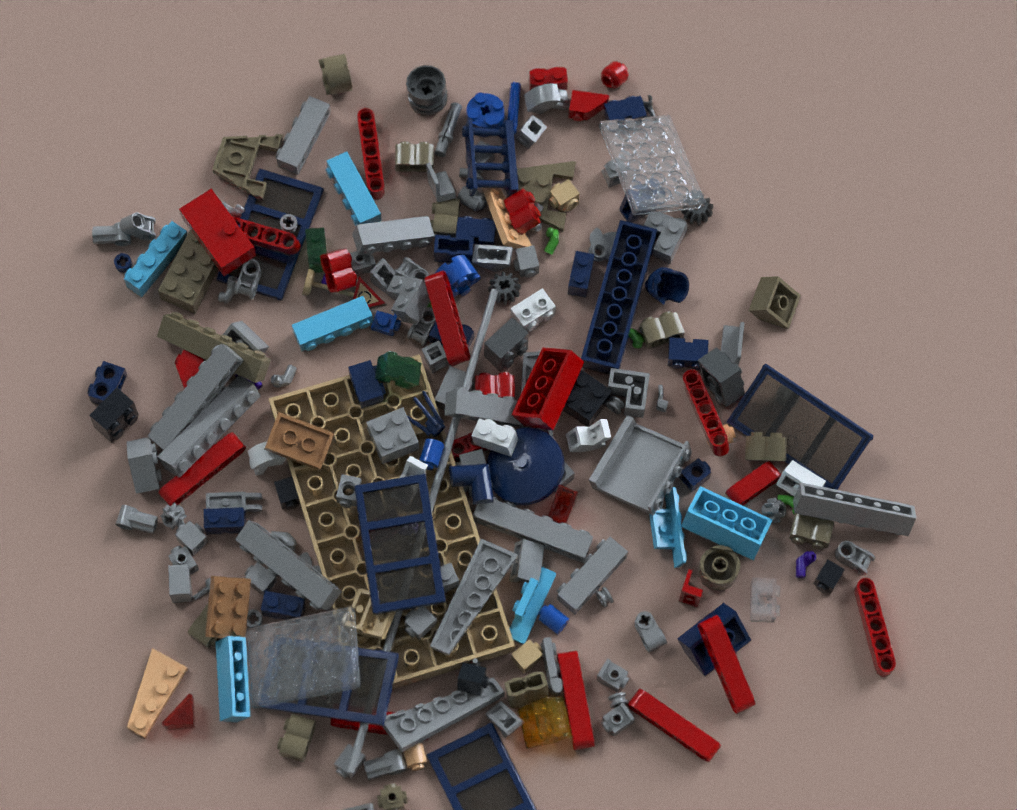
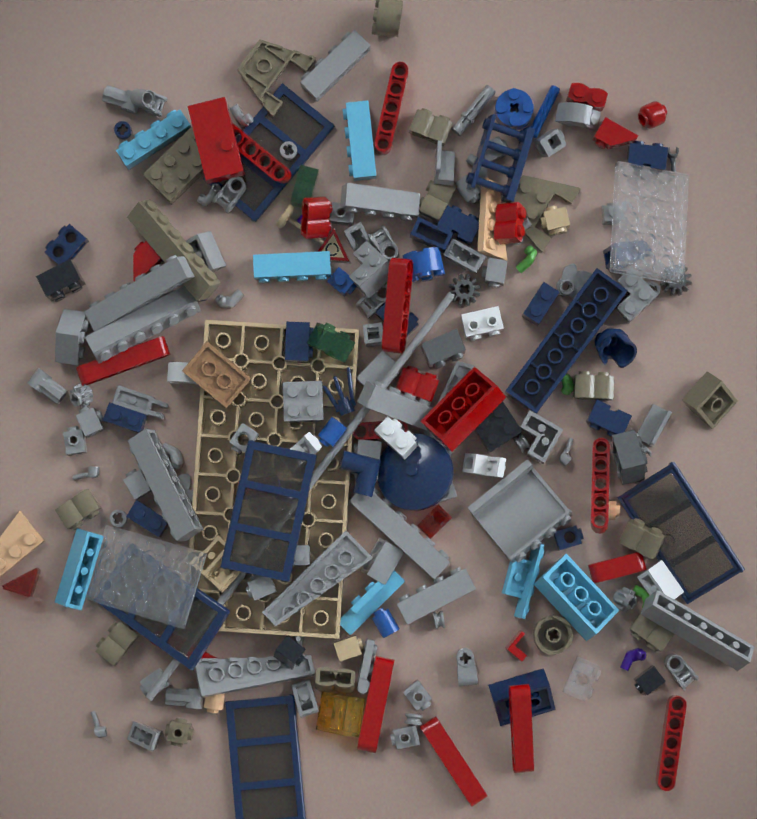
camera: 25 degrees right, 15 degrees up
(180, 583) = (63, 462): light grey slope -> none
(228, 607) = (97, 503): medium nougat plate -> none
(287, 493) = (190, 413): black brick -> none
(426, 90) = (467, 54): dark grey wheel -> none

